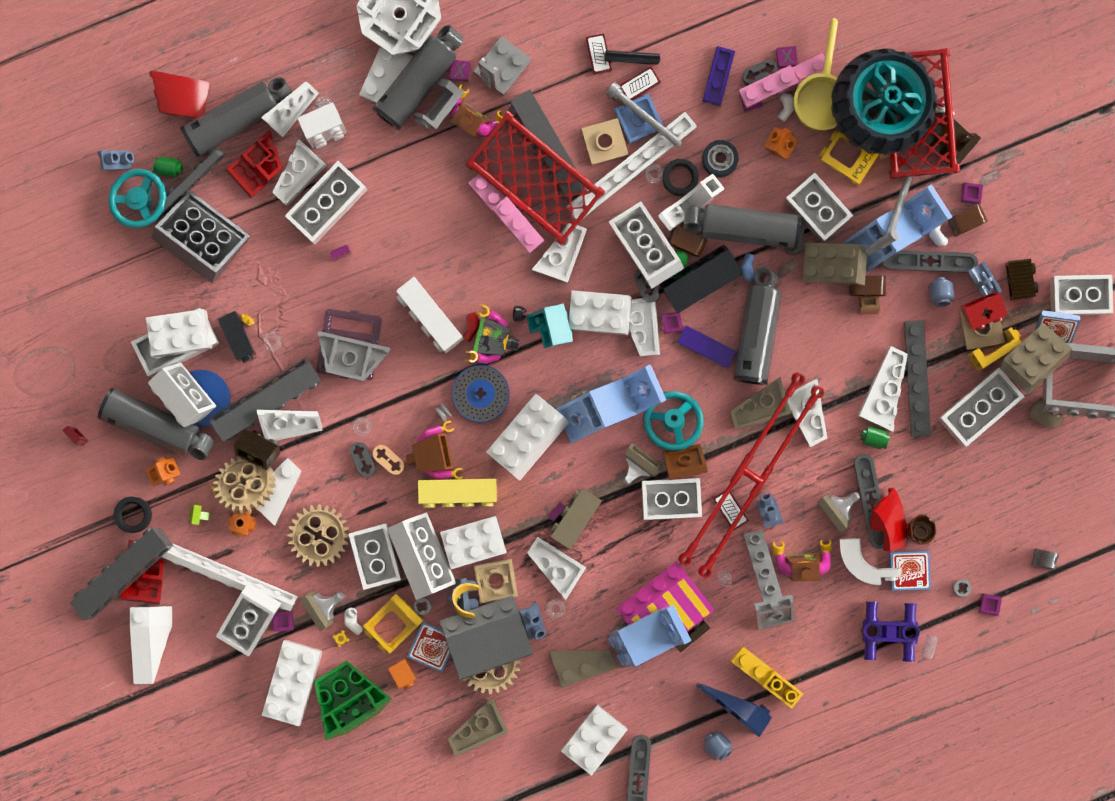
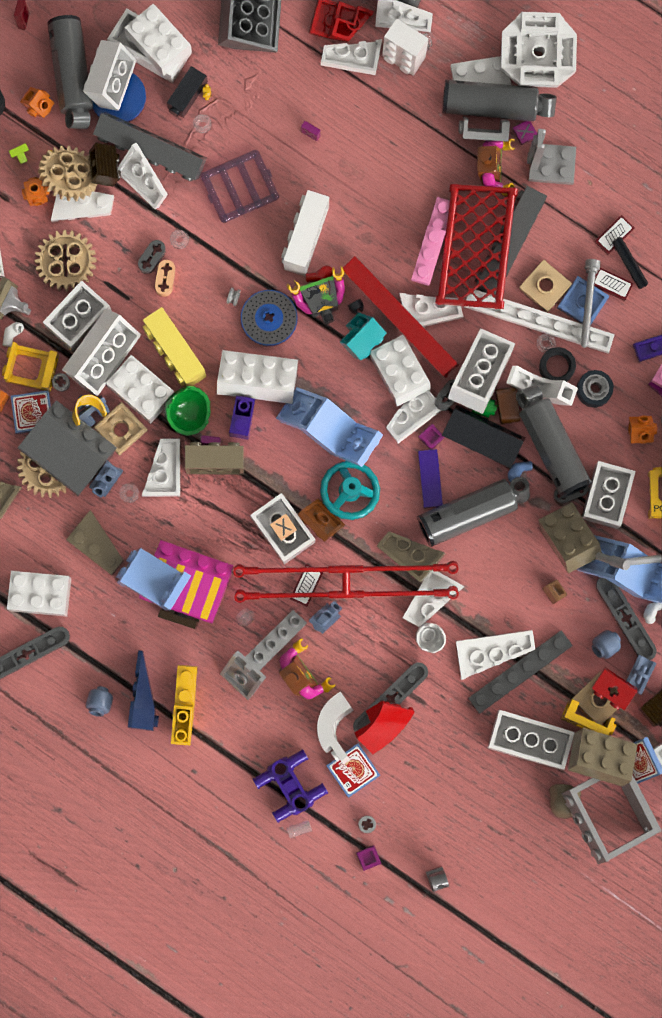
camera: 50 degrees right, 5 degrees down
(326, 202) = (344, 92): white brick -> none
(350, 356) = (230, 191): light grey wing -> none
(433, 454) = (193, 309): dark orange torso -> none
(519, 514) = (188, 410): none -> green cylinder
(553, 472) = (242, 417): none -> dark purple slope
(554, 282) = (400, 316): none -> red tile
(639, 464) = (295, 484): dark tan piece -> none
(673, 498) = (283, 527): none -> light nougat tile
(838, 508) = (365, 675): piece -> none
(842, 434) = (430, 637): none -> white hair
(873, 287) = (572, 582): reddish brown beam -> none
(875, 437) = (446, 667): green brick -> none
(921, 529) = (394, 756): reddish brown hair -> none

